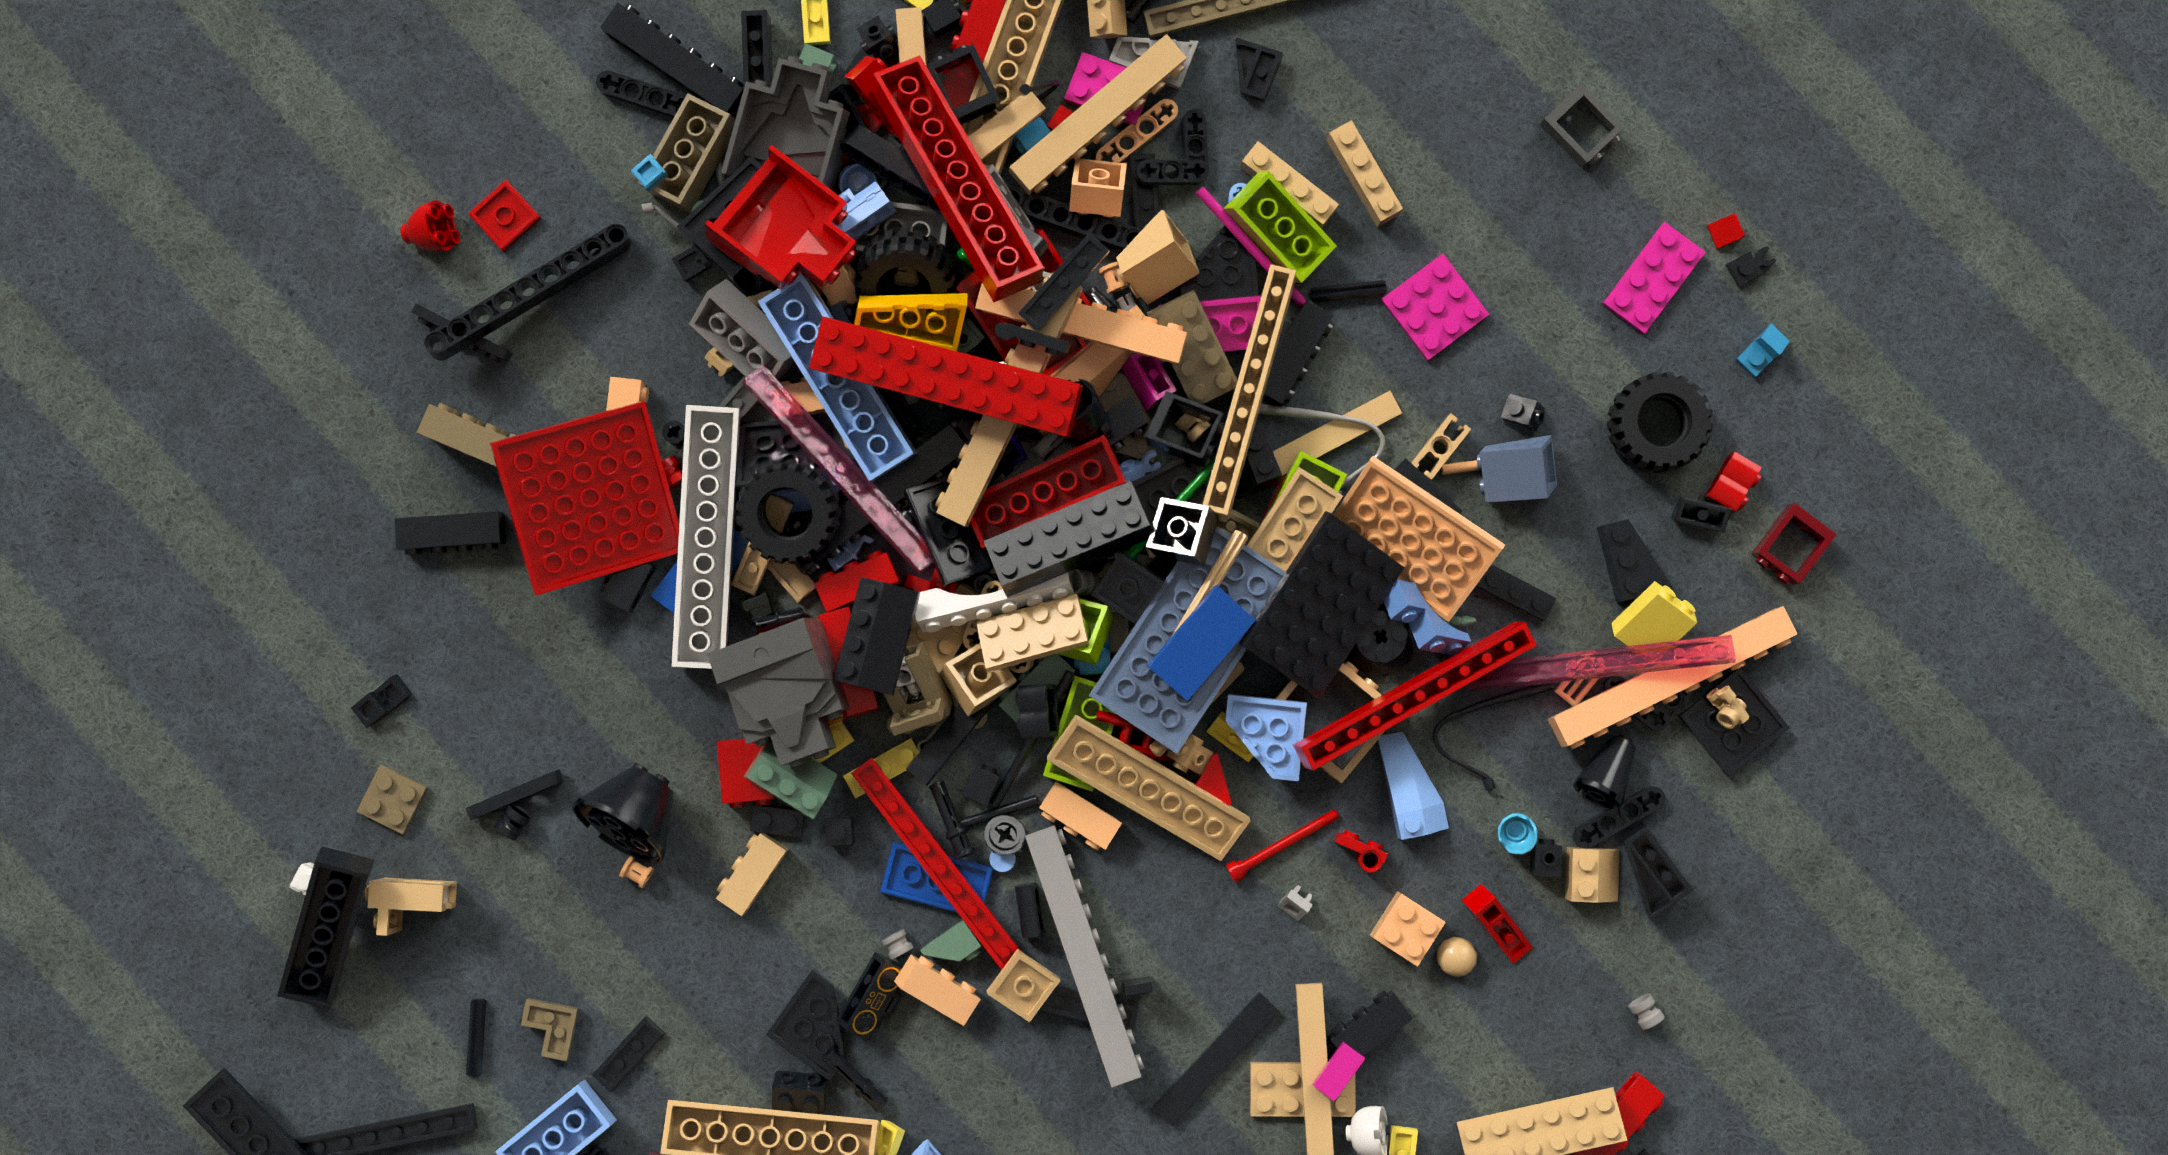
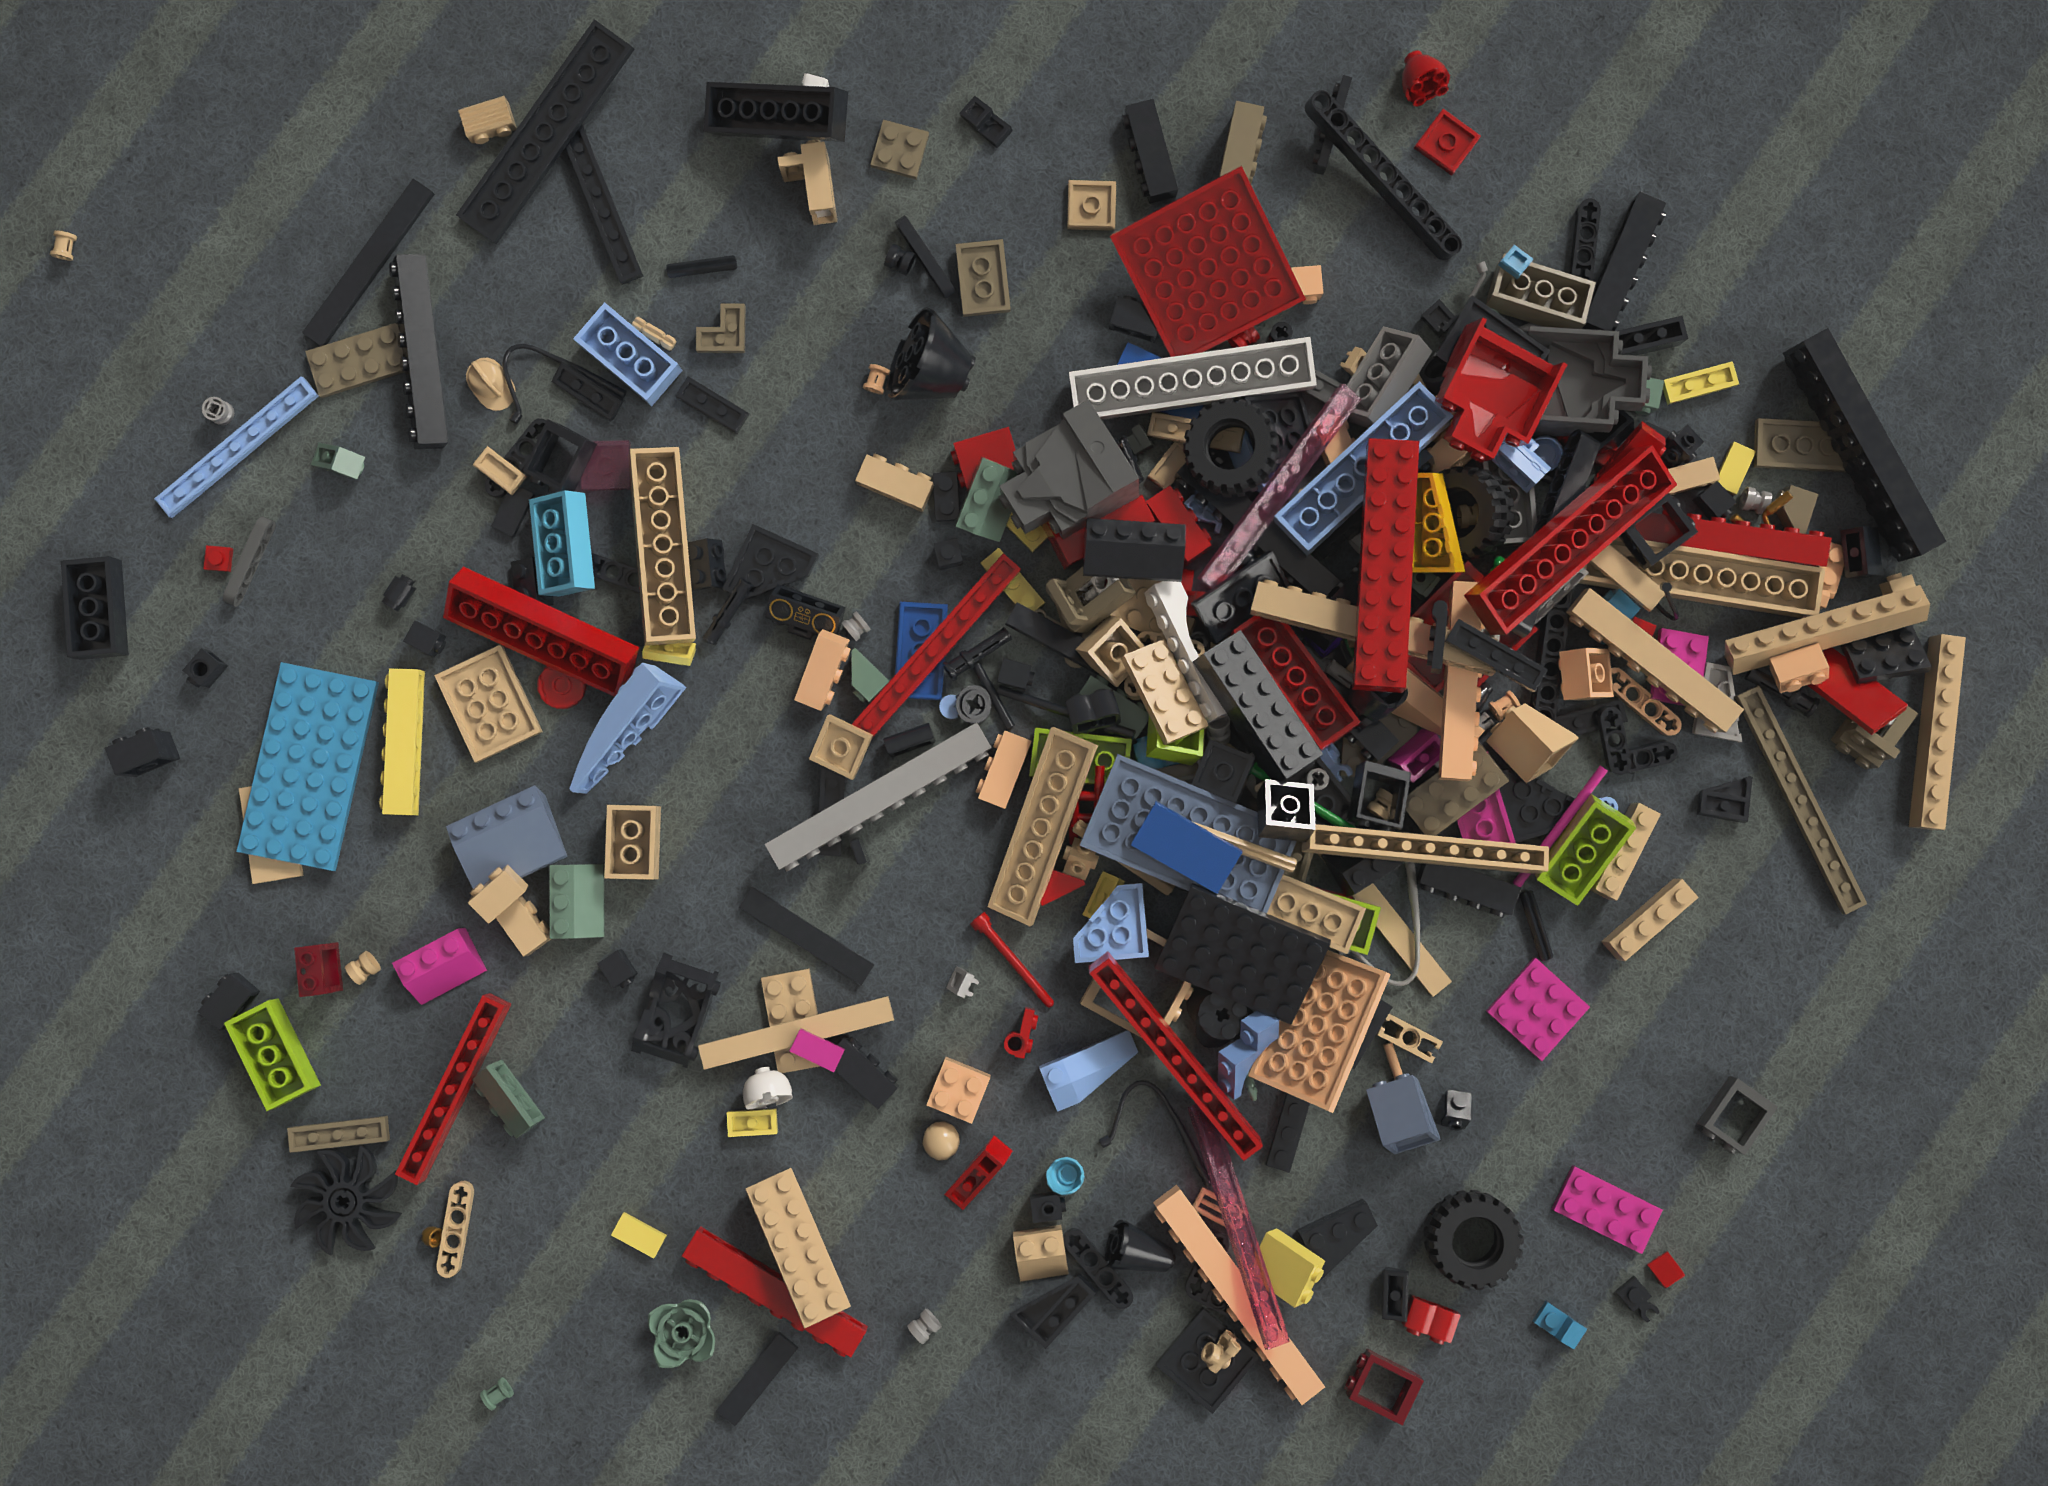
camera: 75 degrees right, 0 degrees up
(495, 605) = (1091, 205): none -> tan tile
(538, 1103) = (654, 333): none -> tan axle
(550, 737) = (983, 278): none -> dark tan plate
(1152, 498) = (1325, 779): none -> light grey bush

